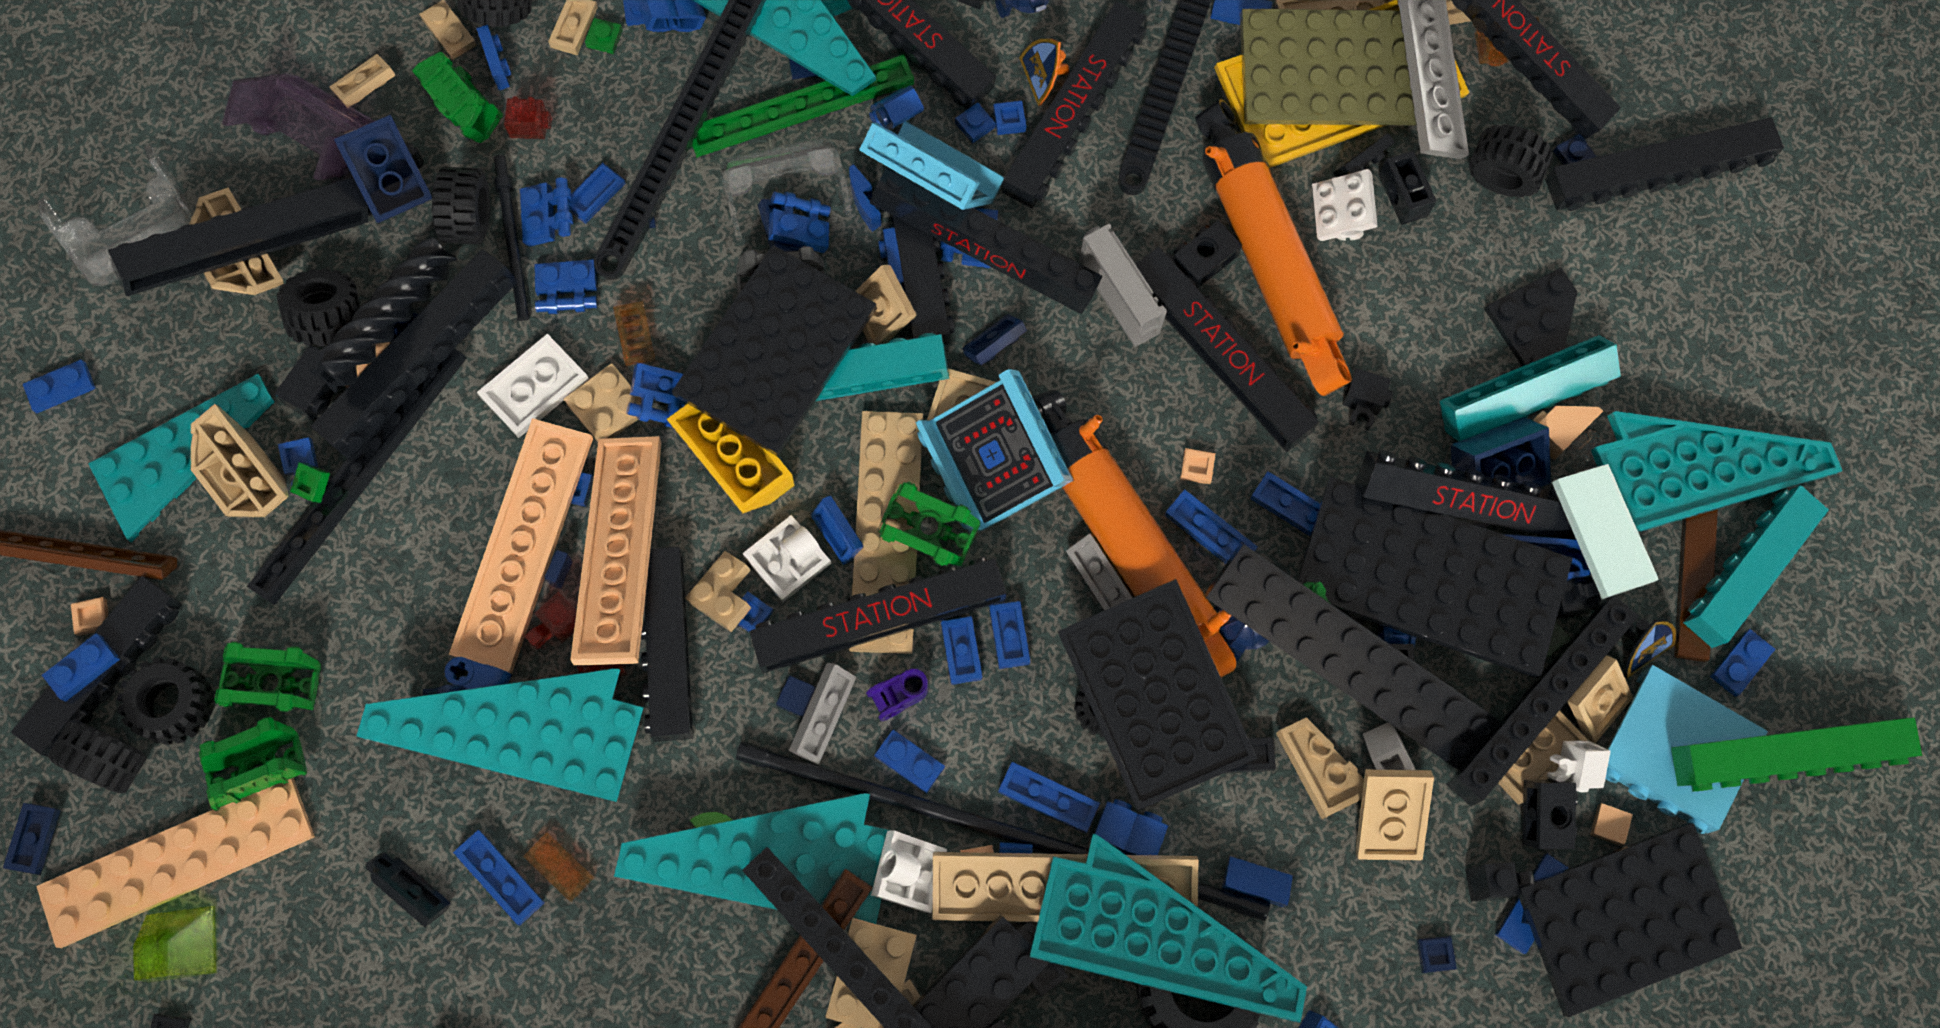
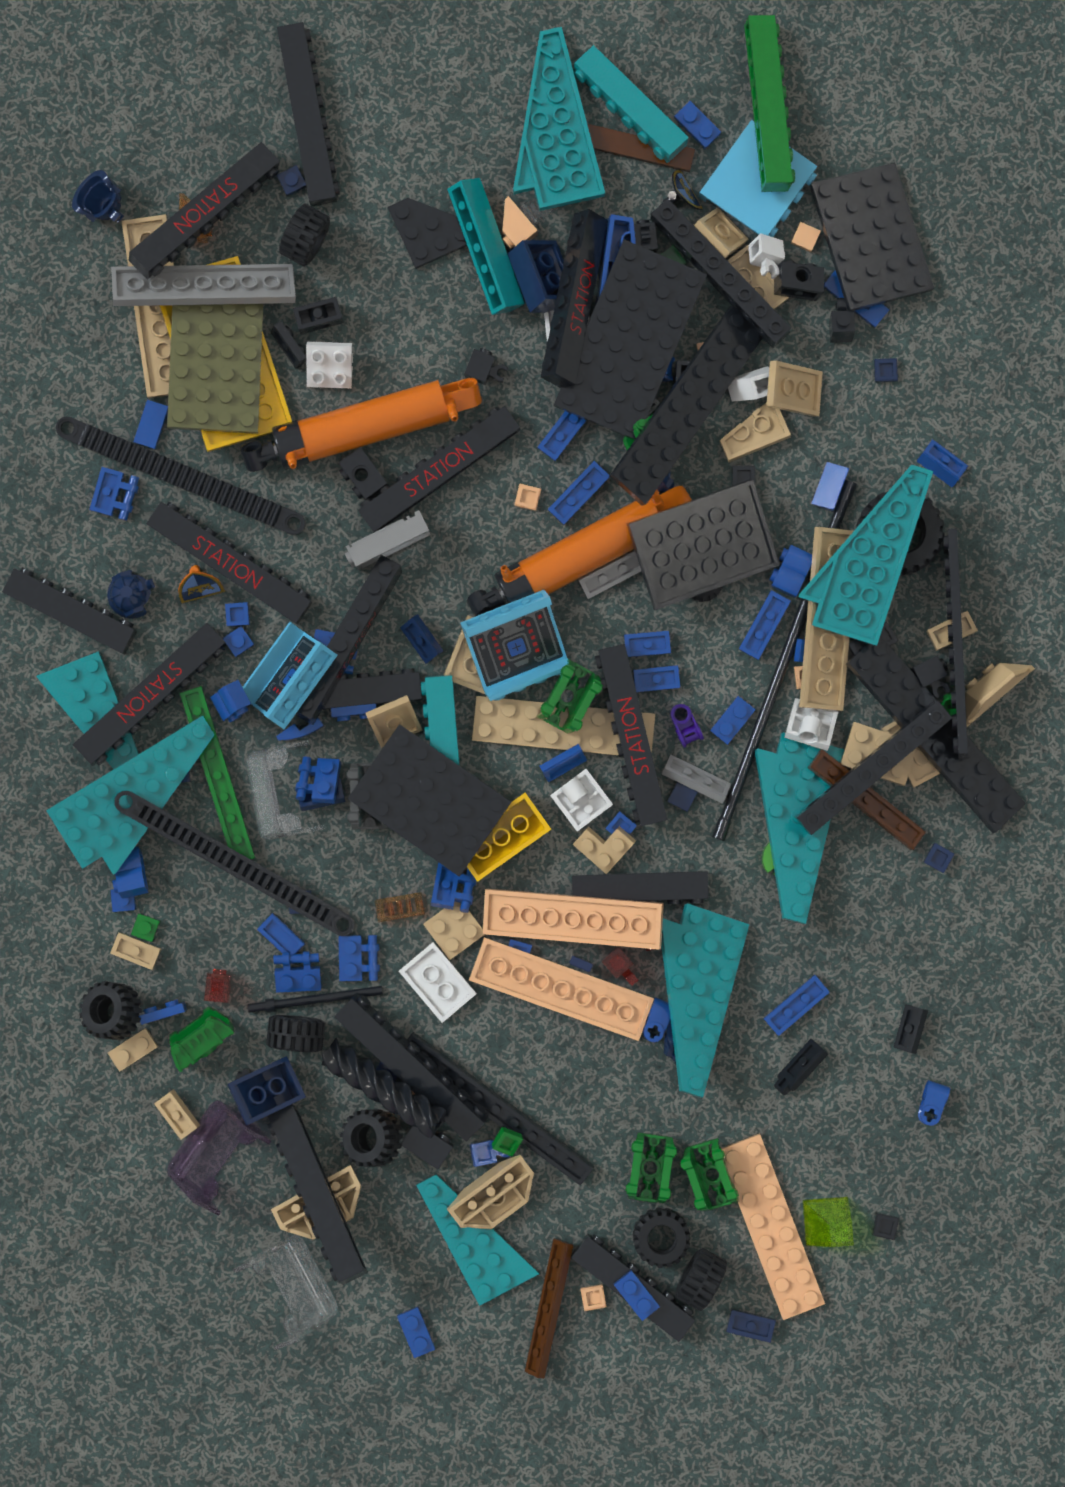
camera: 85 degrees left, 15 degrees up
(559, 867) = (791, 964): clear orange plate -> none
(1605, 531) = (605, 212): light aqua tile -> none

